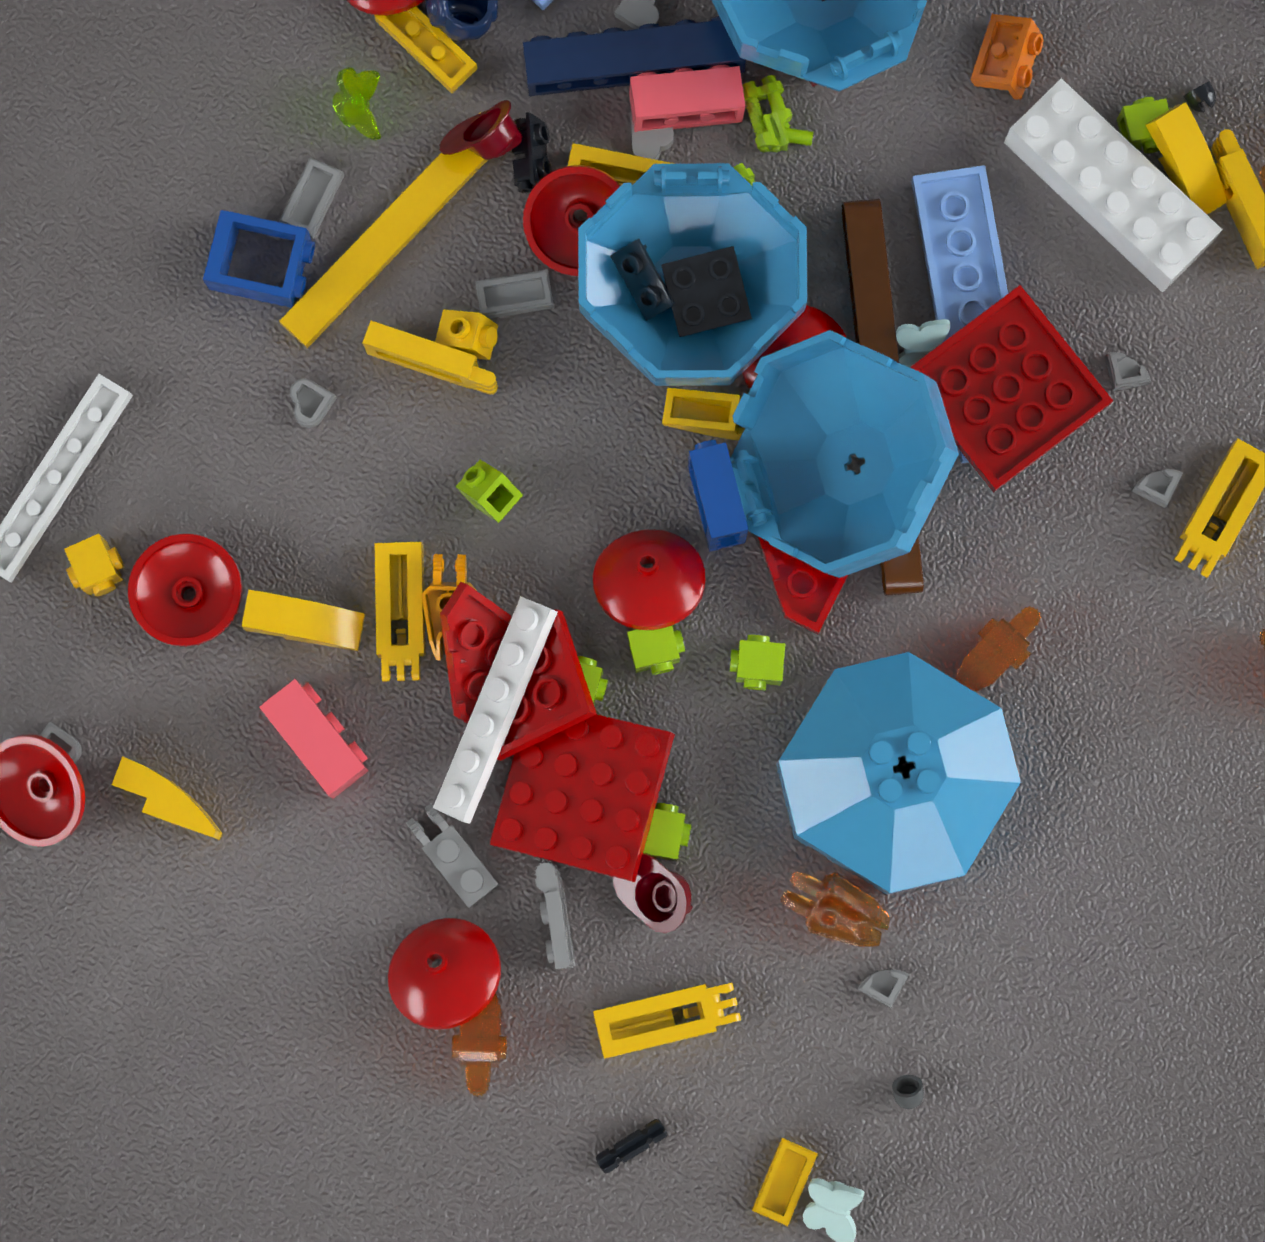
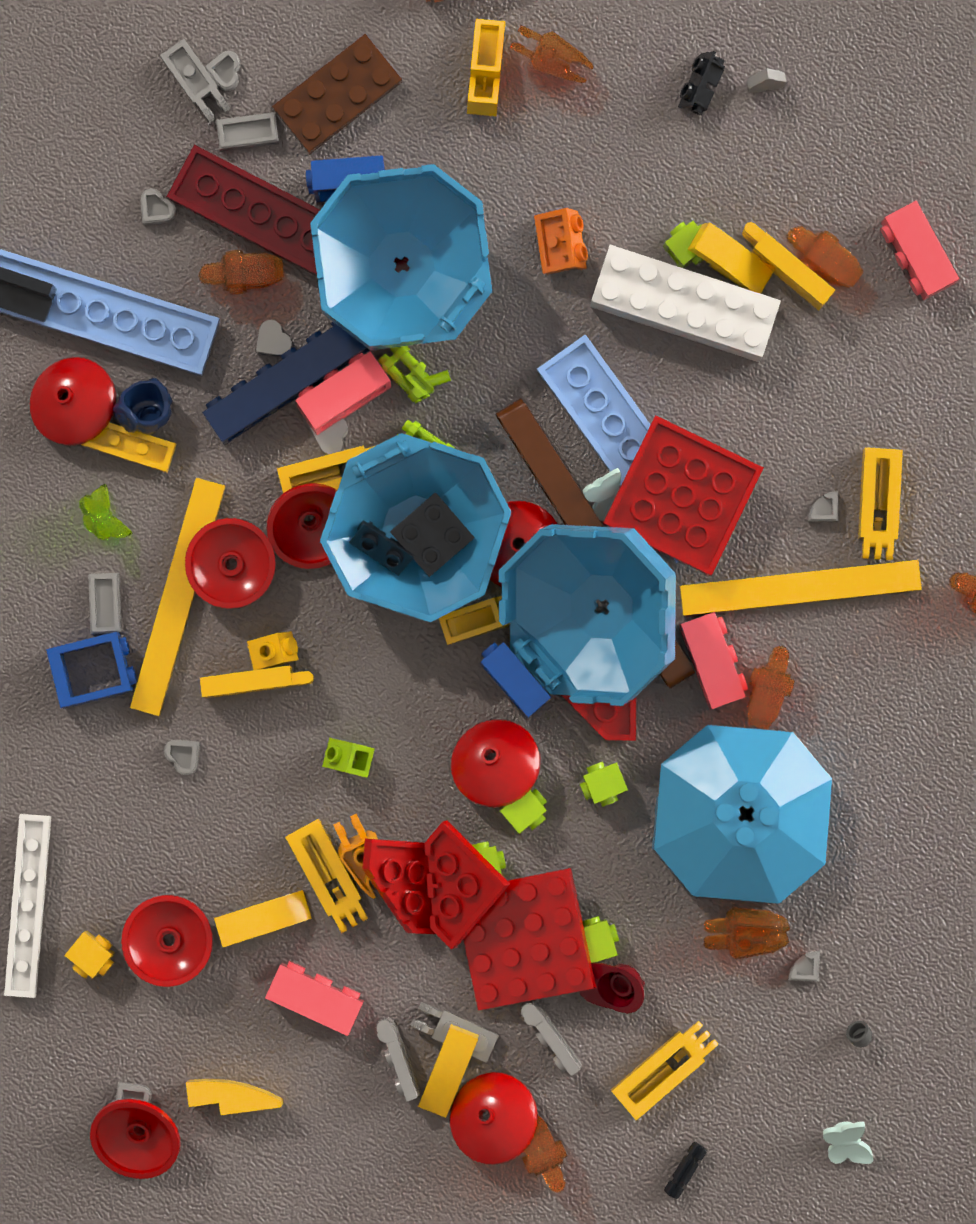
camera: 30 degrees left, 5 degrees up
(373, 851) = (398, 1057): none -> light grey hinge
(421, 893) = (448, 1070): none -> yellow slope
(462, 194) = (214, 547): none -> red dish
(485, 134) = (207, 495): dark red piece -> none
(495, 710) = (435, 915): white plate -> none
(514, 294) = (290, 600): light grey tile -> none
(535, 165) = (244, 477): black hinge -> none
(784, 1181) = (804, 1140): yellow tile -> none
(950, 588) = (713, 660): none -> coral brick
(1088, 558) = (800, 587): none -> yellow tile
(1125, 371) = (761, 435): light grey tile -> none
(1198, 95) = (716, 202): black hinge -> none

